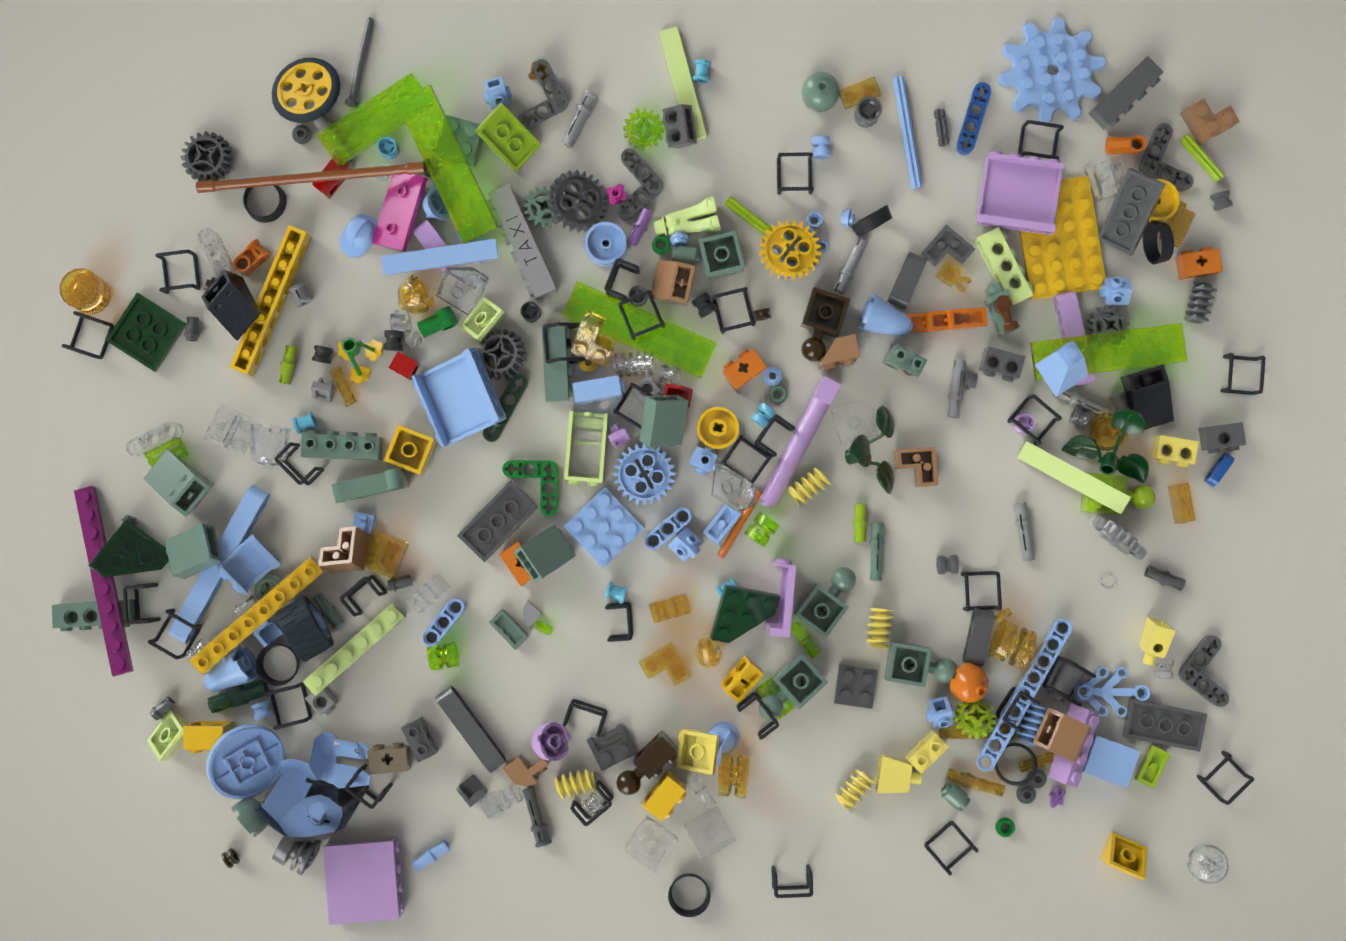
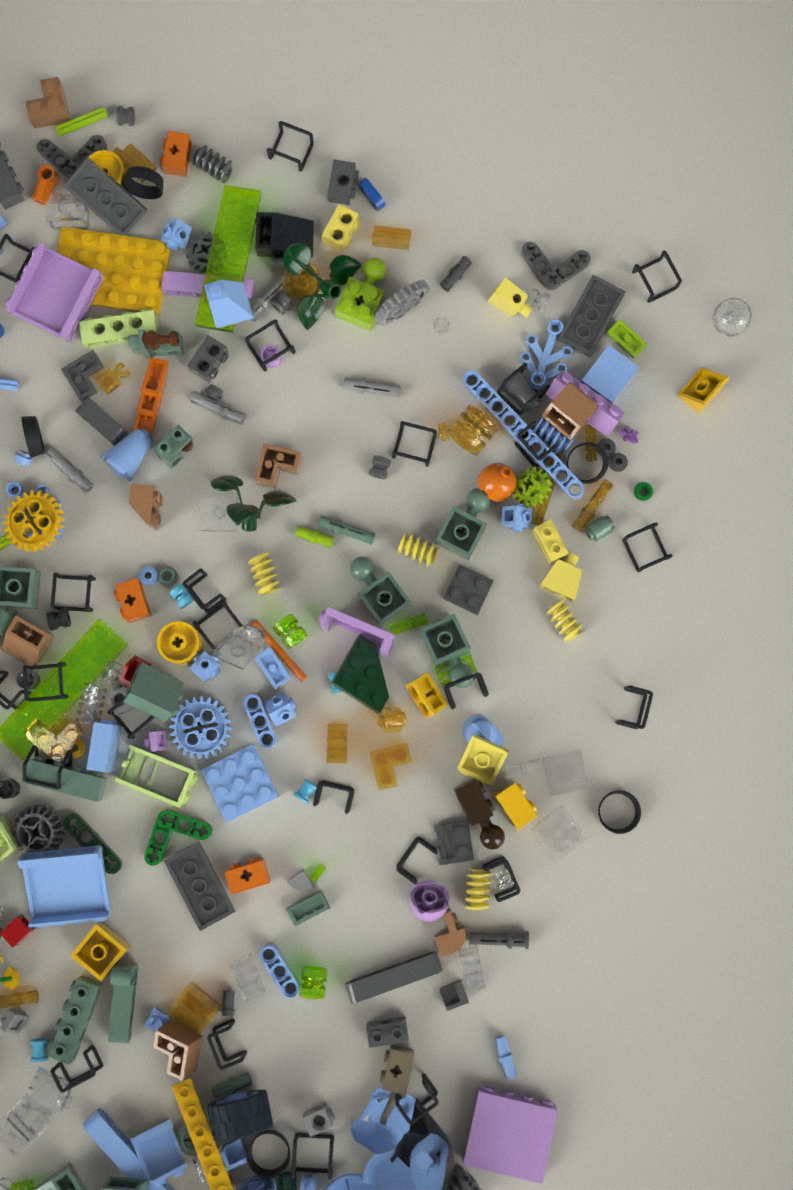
camera: 70 degrees left, 5 degrees down
(353, 649) = (278, 1071): yellowish green plate -> none
(544, 553) = (244, 849): sand green brick -> none
(733, 775) = (515, 734): clear yellow wheel -> none
(762, 314) = (86, 567): dark brown bush -> none
(799, 442) = (219, 570): lavender brick -> none
(814, 348) = (114, 514): dark brown brick -> none
(978, 637) = (457, 460): dark grey beam -> none
(1074, 477) = (335, 325): yellowish green tile -> none

